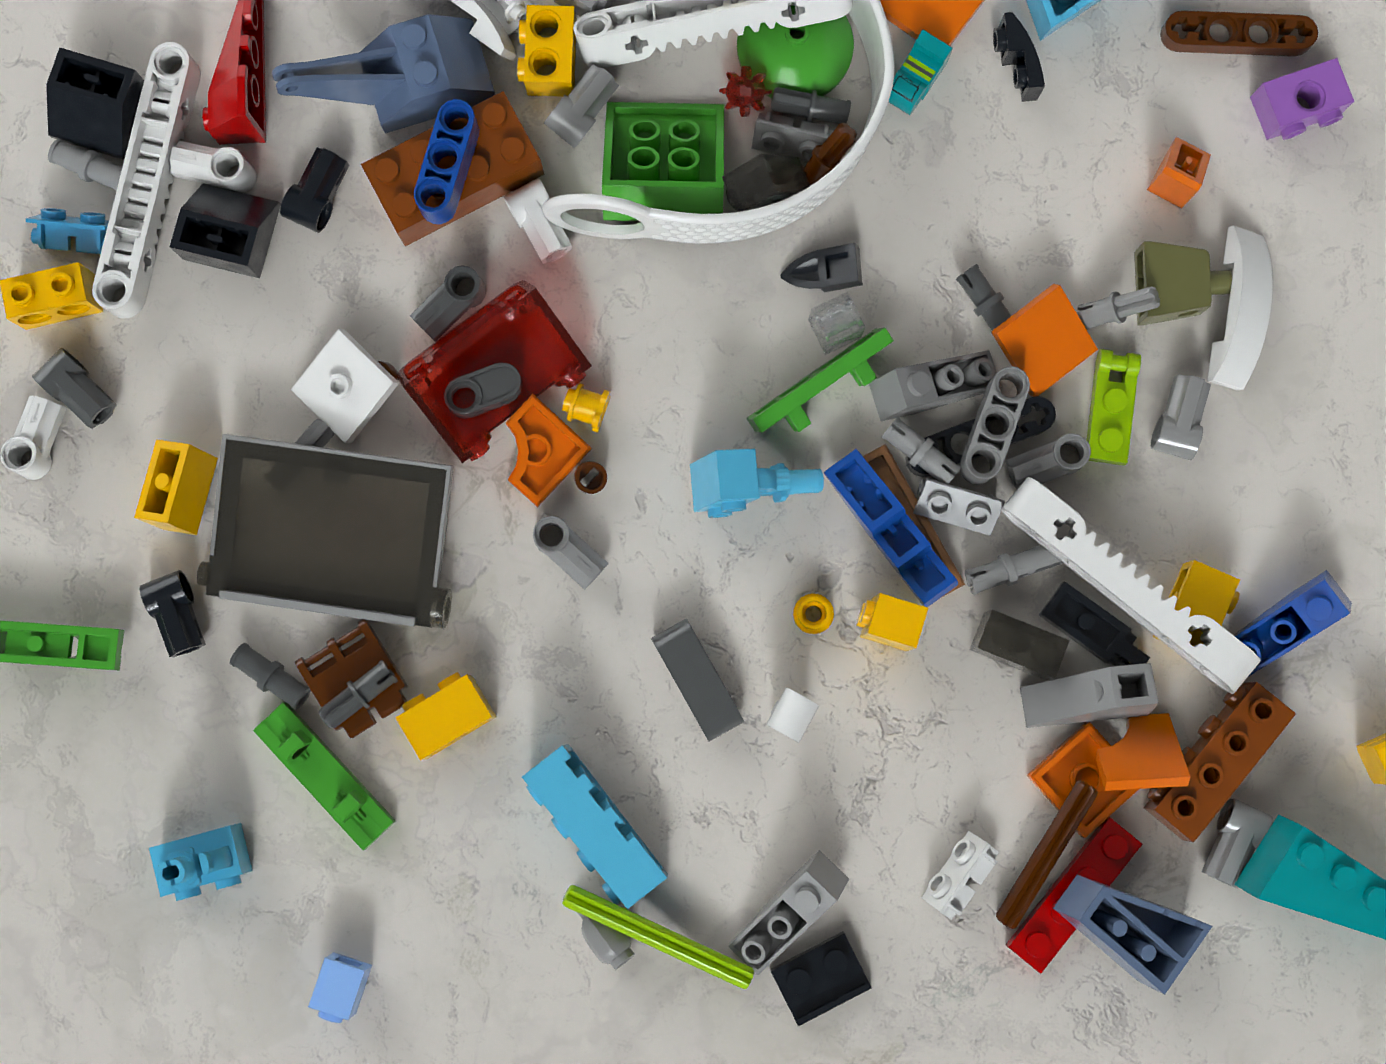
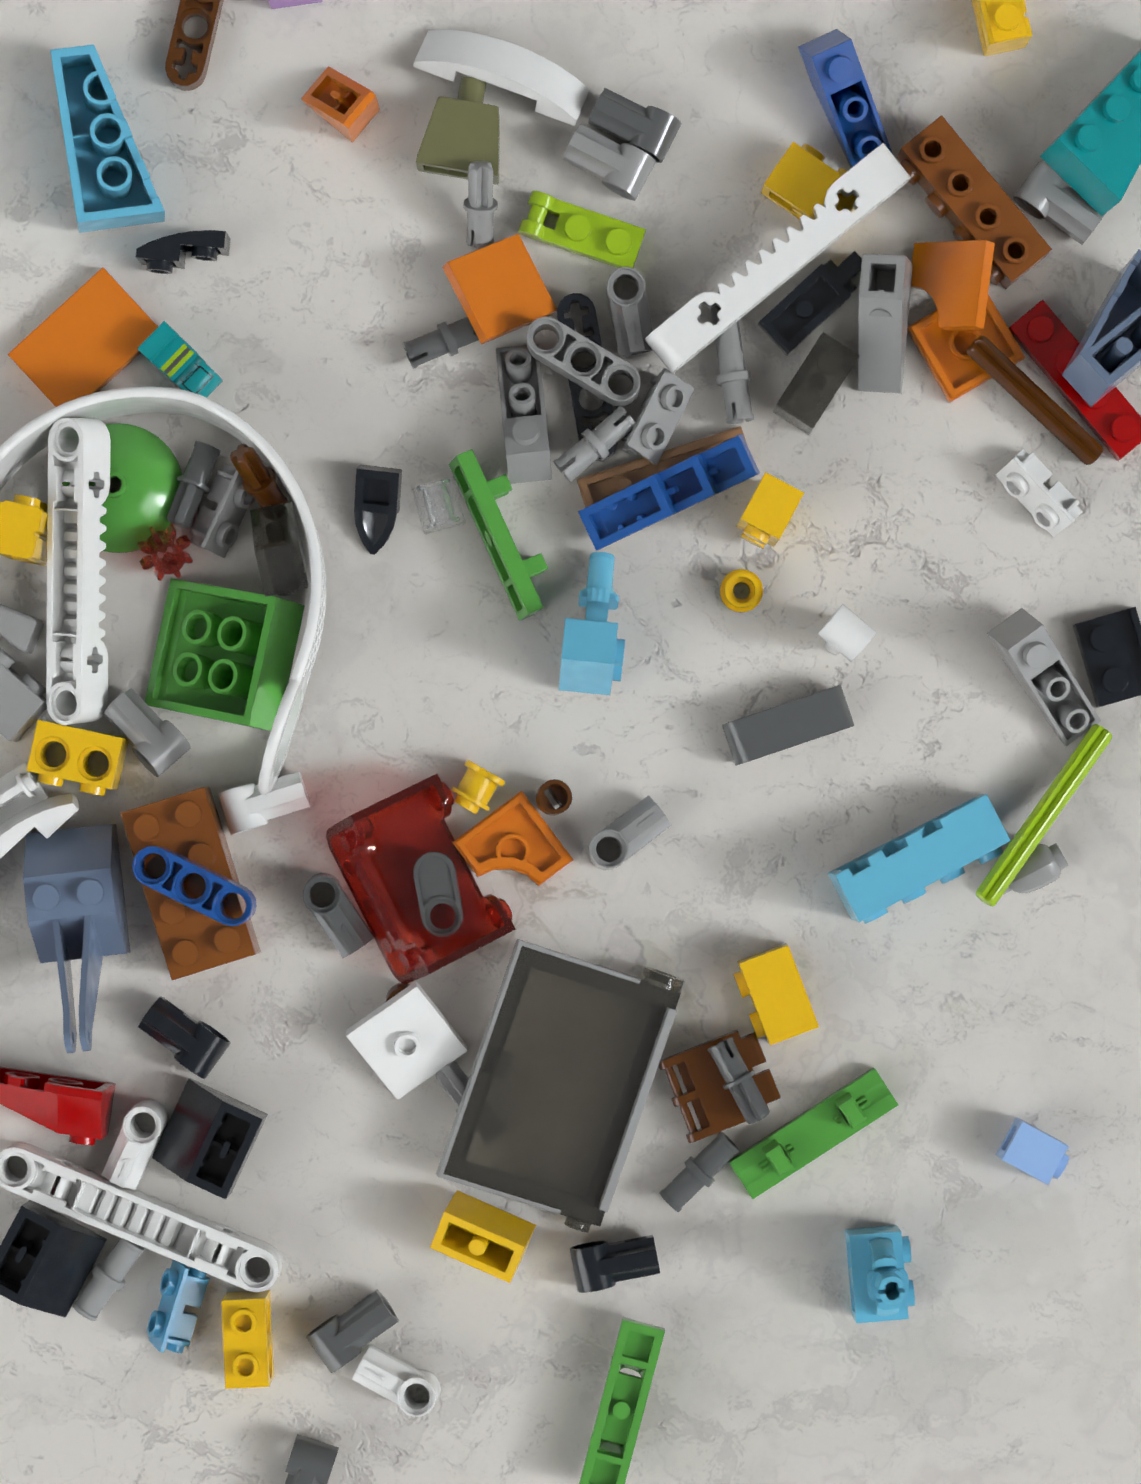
camera: 80 degrees left, 5 degrees up
(1222, 430) = (642, 127): none -> dark grey piece

